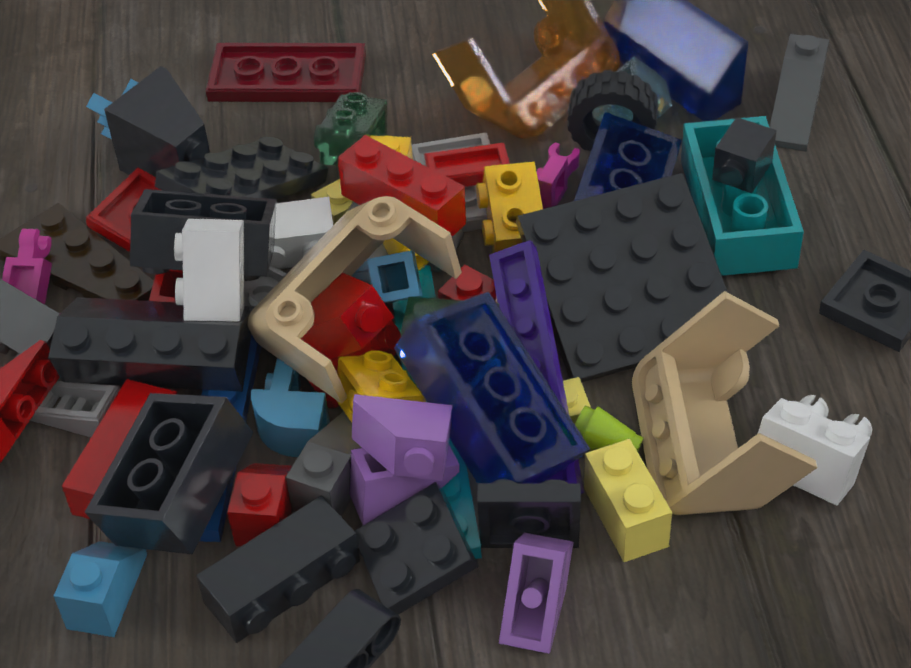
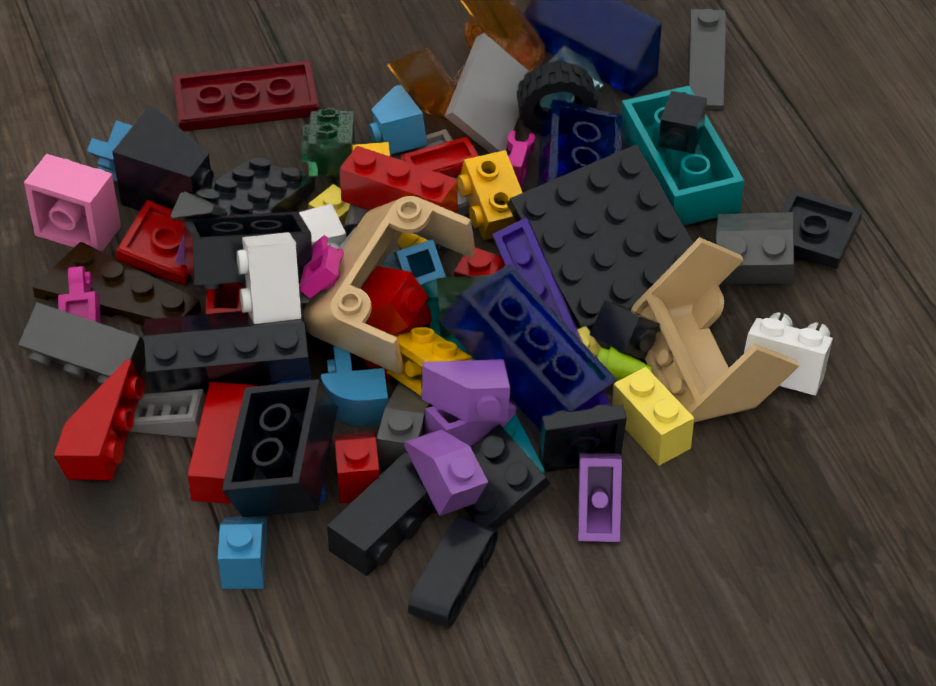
camera: 15 degrees left, 0 degrees up
(56, 160) = (72, 203): none -> bright pink brick
(162, 177) = (195, 206): none -> dark grey slope
(273, 270) = (322, 269): none -> dark pink plate
(351, 531) = (447, 470): none -> medium lavender slope
(430, 118) = (398, 122): none -> dark azure slope
(534, 100) = (487, 95): none -> light grey tile
(620, 388) = (625, 329): none -> black brick
(810, 312) = (763, 243): none -> dark grey slope

